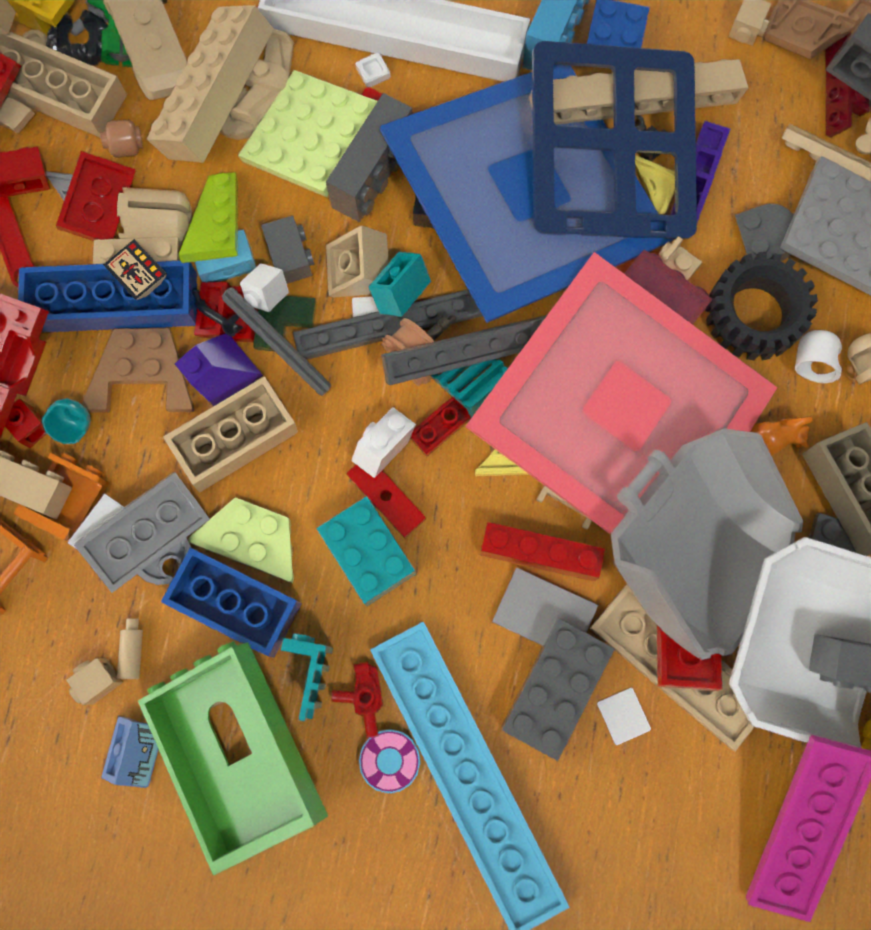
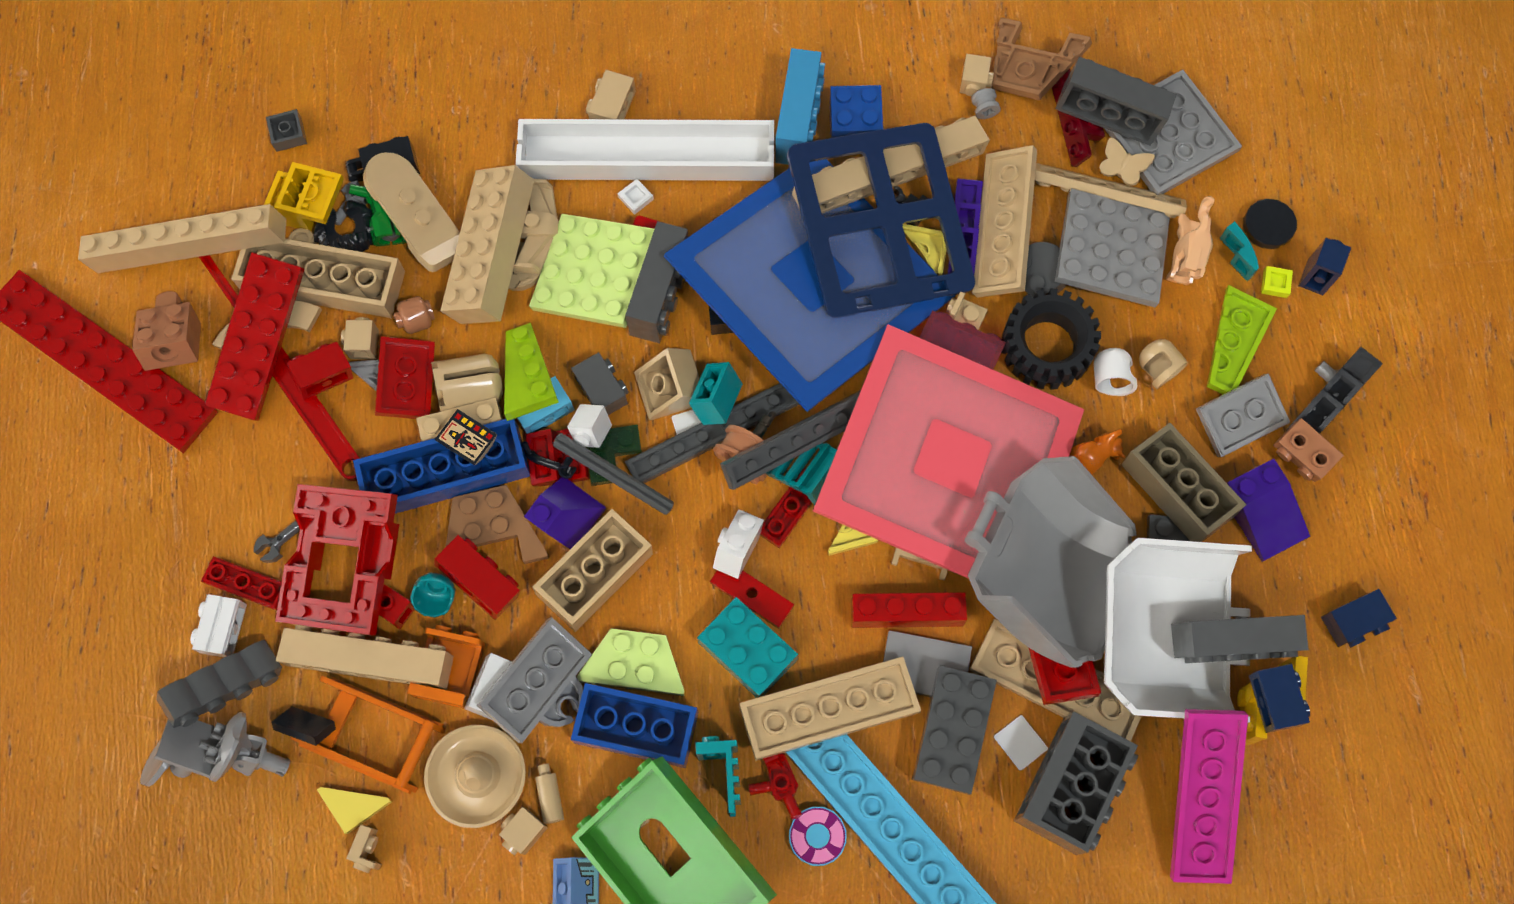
camera: 15 degrees left, 5 degrees down
(60, 613) = (474, 776): none -> tan hat
(63, 150) = (360, 338): none -> tan brick
(114, 413) = (477, 576): none -> red brick
(433, 634) = (829, 708): none -> tan plate
(650, 774) = (1057, 787): none -> dark grey brick
(743, 175) = (1005, 222): none -> tan plate
(753, 51) = (985, 103): none -> light grey wheel

